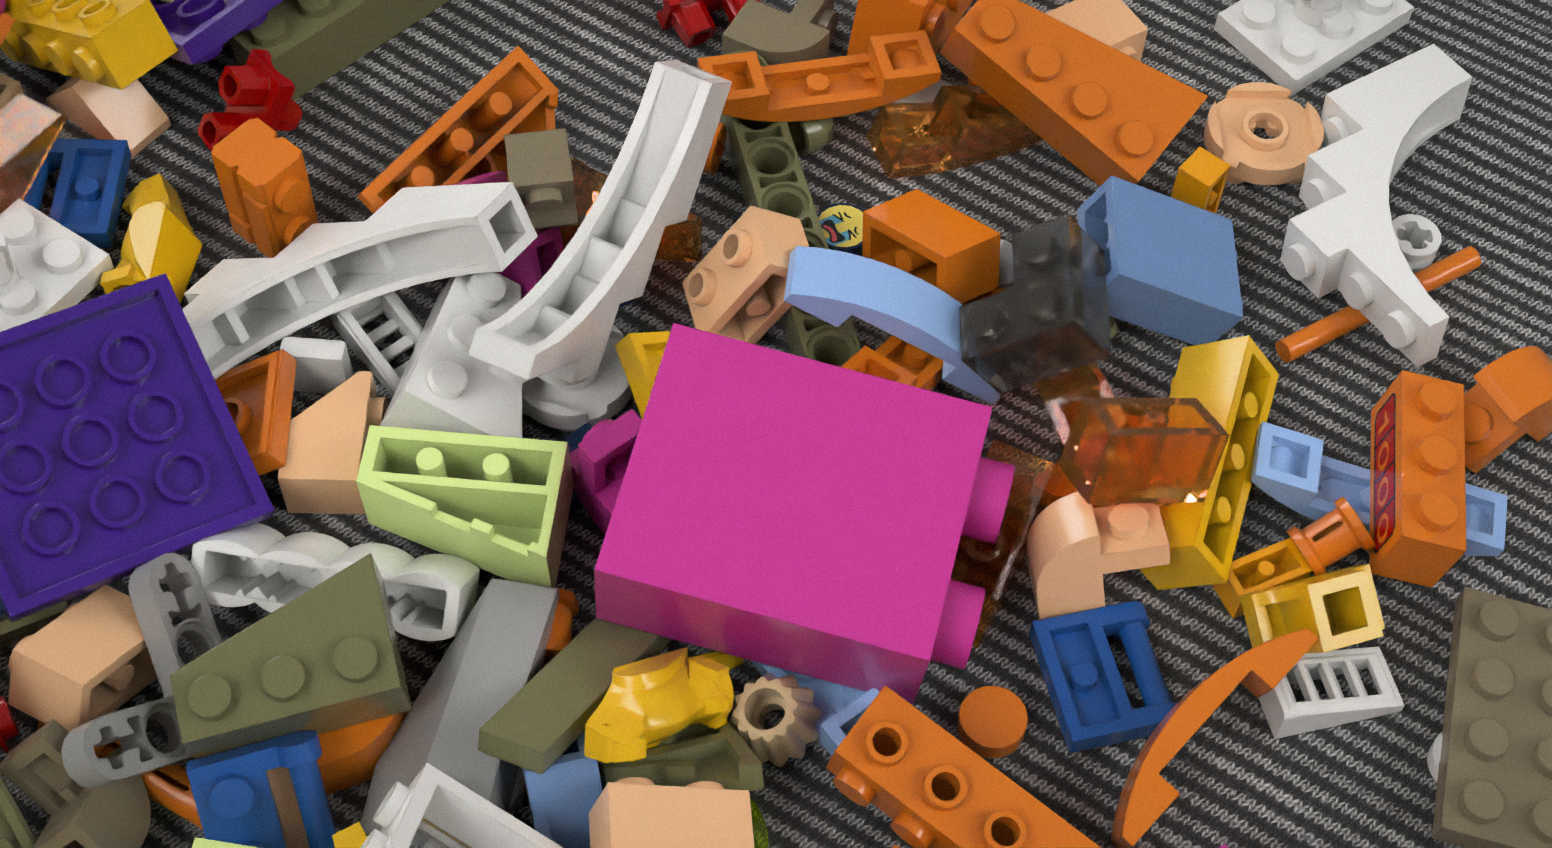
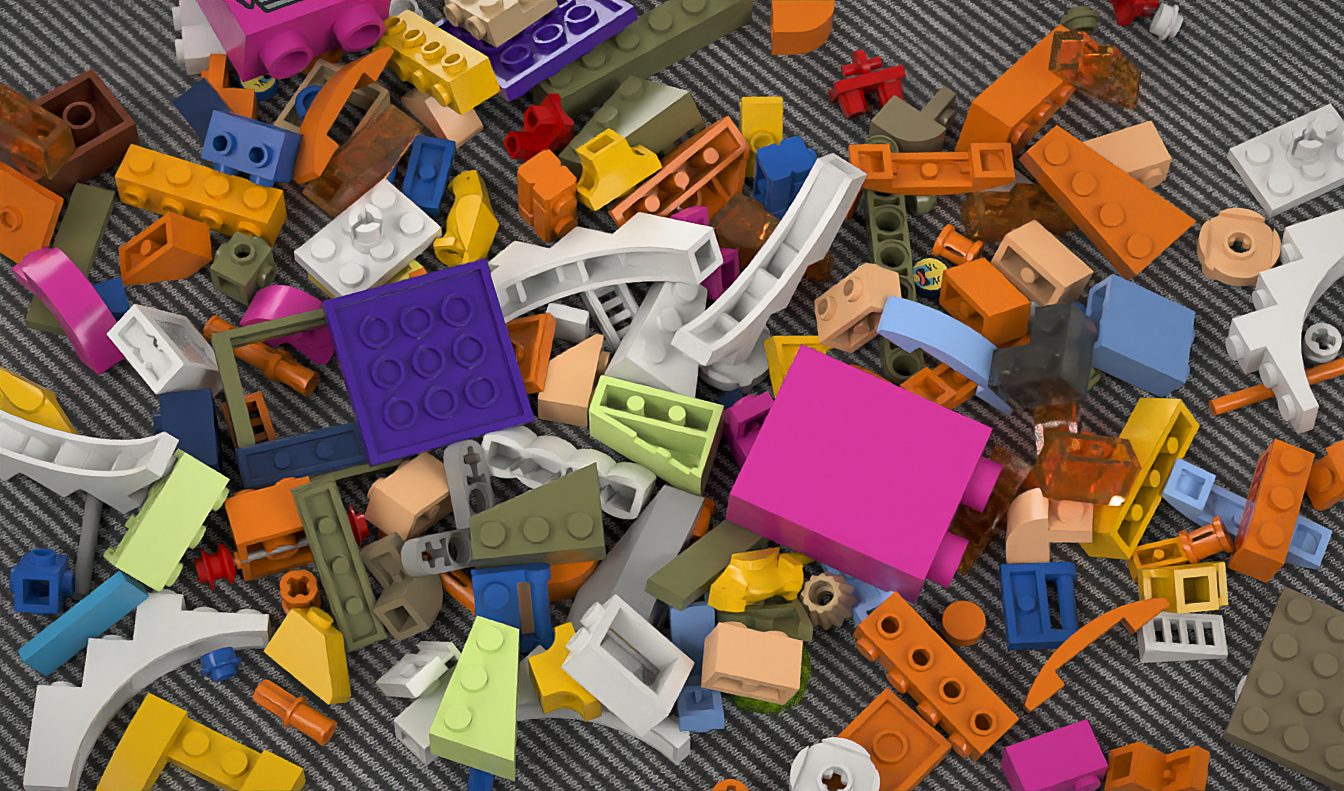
camera: 10 degrees right, 5 degrees up
(355, 134) = (612, 168): none -> yellow brick
(376, 94) = (641, 113): none -> olive wedge
(543, 177) = (732, 219): dark tan brick -> none
(570, 59) = (760, 125): none -> yellow brick
(603, 109) = (781, 174): none -> blue brick
(872, 184) = (956, 247): none -> orange bush
(998, 186) = (1041, 265): none -> light nougat brick
(1201, 180) = (1180, 282): light orange piece -> none

